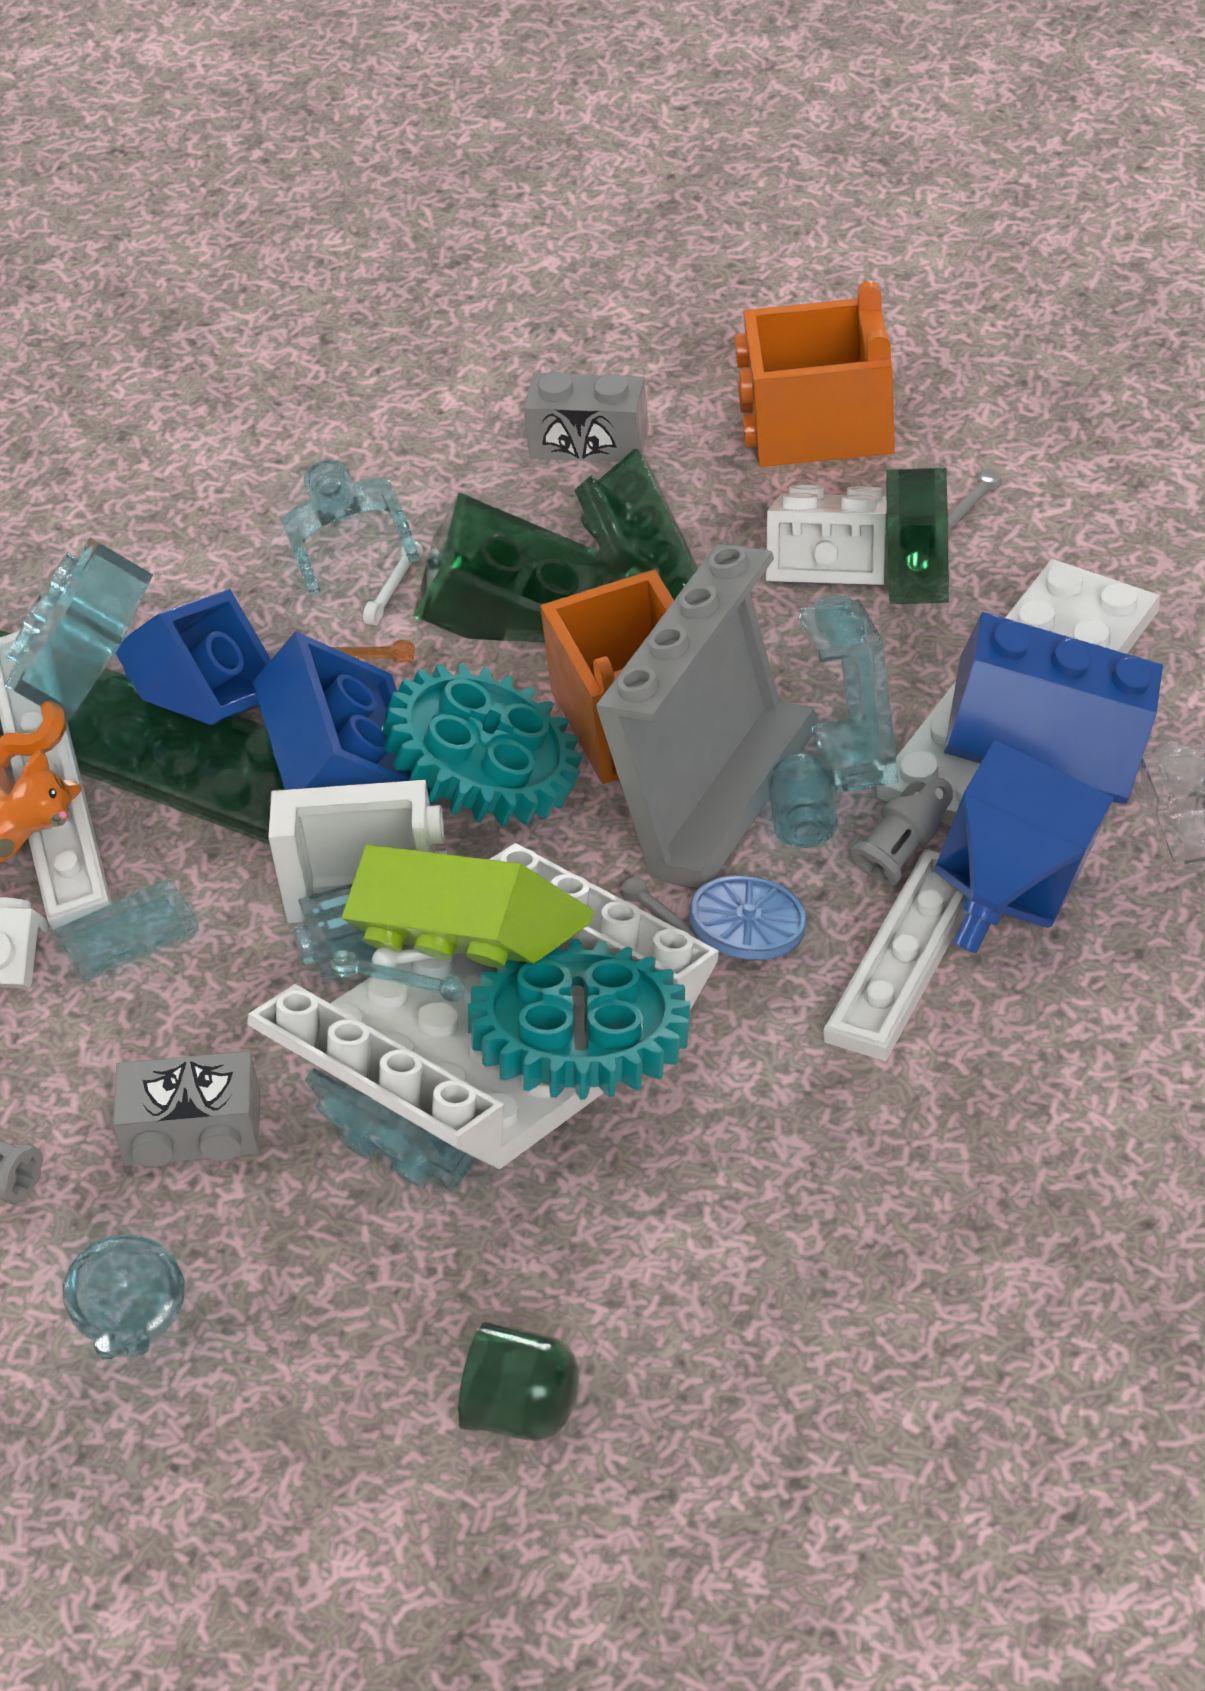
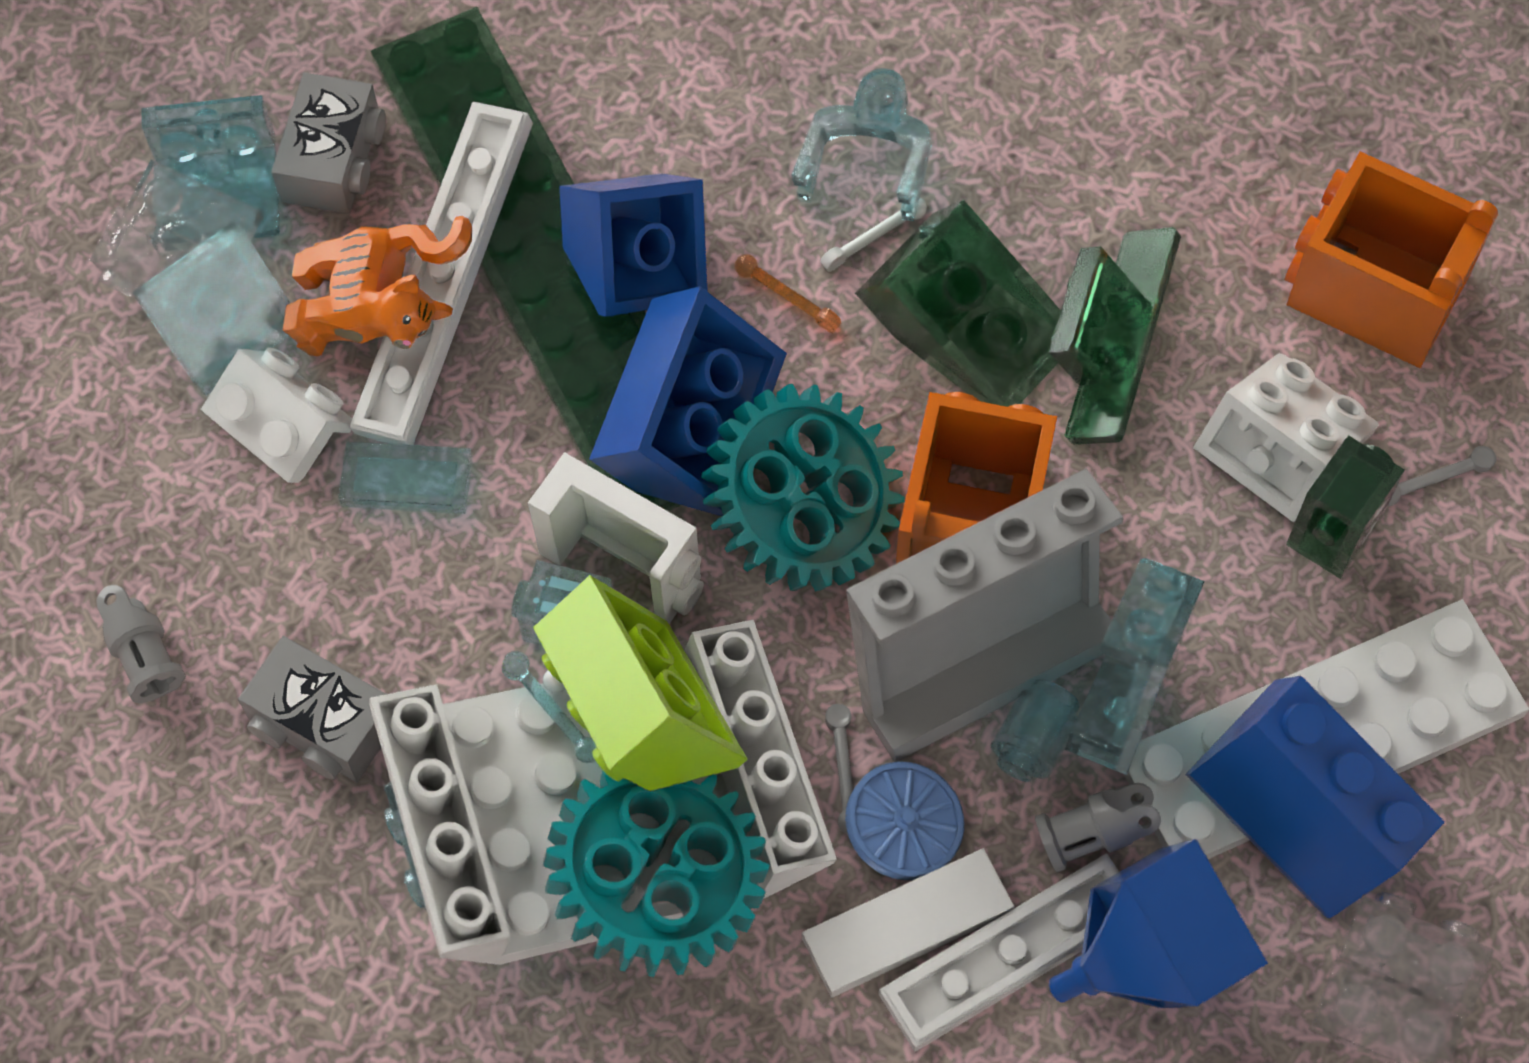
camera: 30 degrees right, 20 degrees up
(76, 626) = (534, 154): clear light blue brick -> none
(123, 1282) = (139, 875): clear light blue hat -> none
(585, 416) = (1161, 158): light grey brick -> none
(805, 981) = (907, 922): none -> white tile

